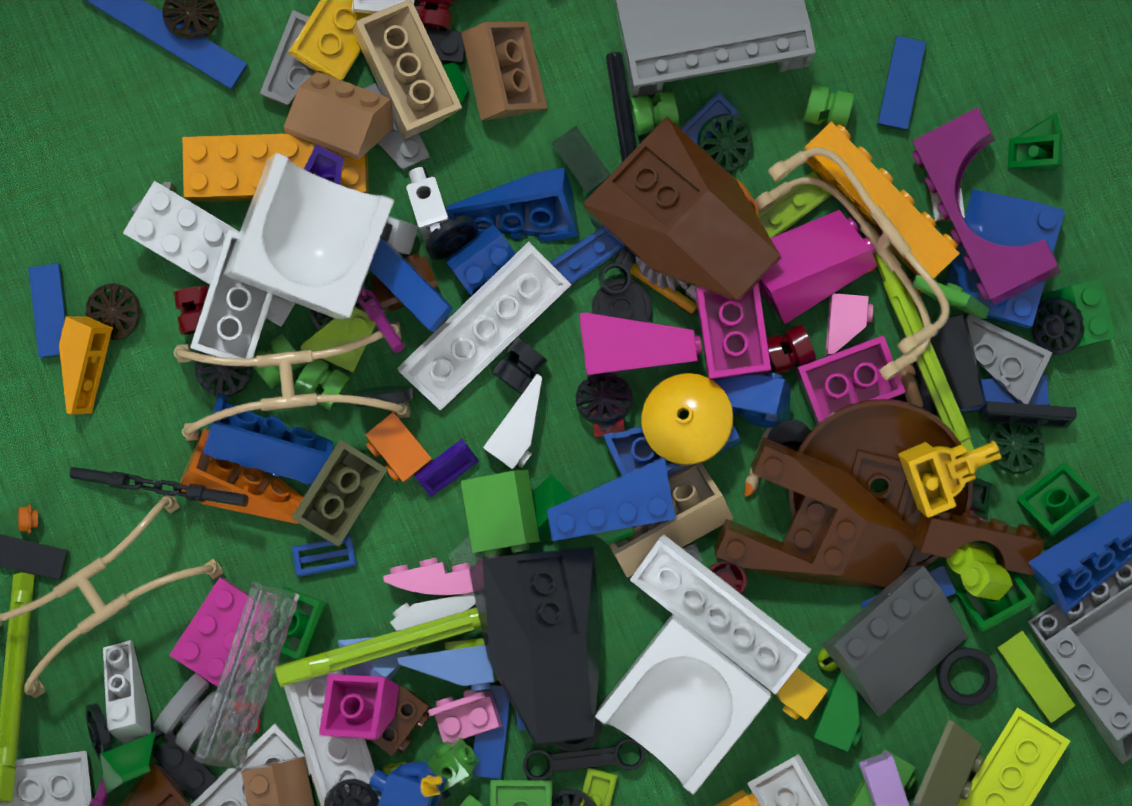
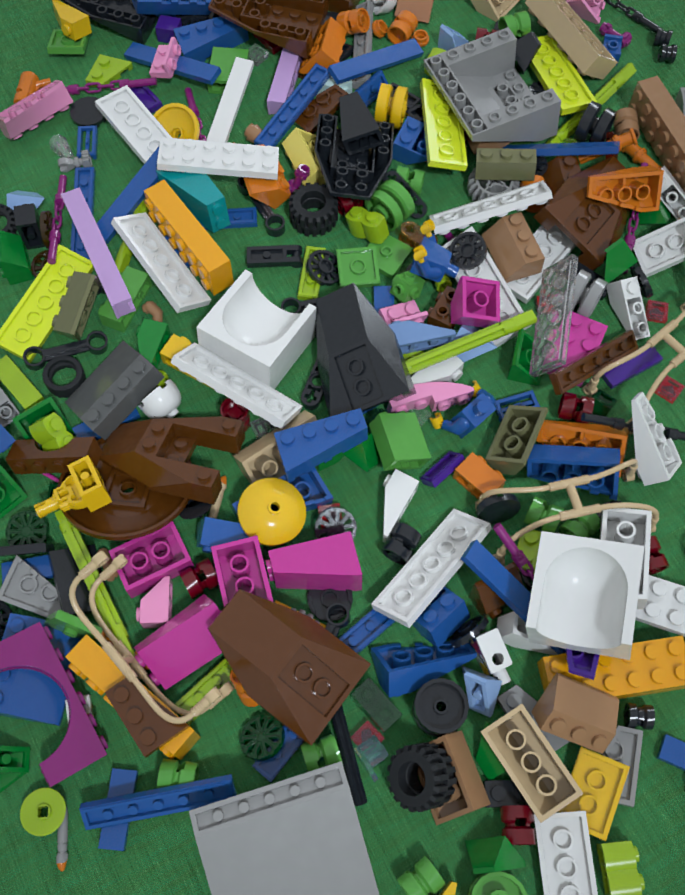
camera: 170 degrees right, 20 degrees down
(82, 687) = (657, 311): none -> clear pink tile
(94, 550) = (669, 389): none -> clear pink tile
(149, 602) = (632, 368): none -> dark purple tile
(153, 455) = (655, 454): none -> white wedge
(201, 545) = (603, 403): none -> dark green slope
(204, 595) = (593, 362): none -> reddish brown tile
(254, 536) = (568, 406): none -> dark red wheel
(260, 112) = (639, 716): none -> black wheel
(391, 542) = (470, 416): none -> blue torso
(448, 166) = (481, 691): none -> light blue slope
(498, 165) = (450, 697): none -> black wheel
(534, 52) = (405, 781): none -> black tyre
(595, 103) = (370, 754): none -> clear light blue panel
(596, 128) = (365, 732): none -> clear pink tile
(621, 610) = (309, 387): none -> black beam
(826, 613) = (162, 402): none -> white cylinder
(831, 773) = (152, 308): none -> medium nougat arm
(852, 78) = (156, 802): none -> blue tile
(868, 162) = (141, 721): none -> reddish brown wing
(964, 716) = (65, 350): none -> black piece
(968, 40) = (62, 840): none -> light grey piece
(990, 74) = (31, 811): none -> lime piece

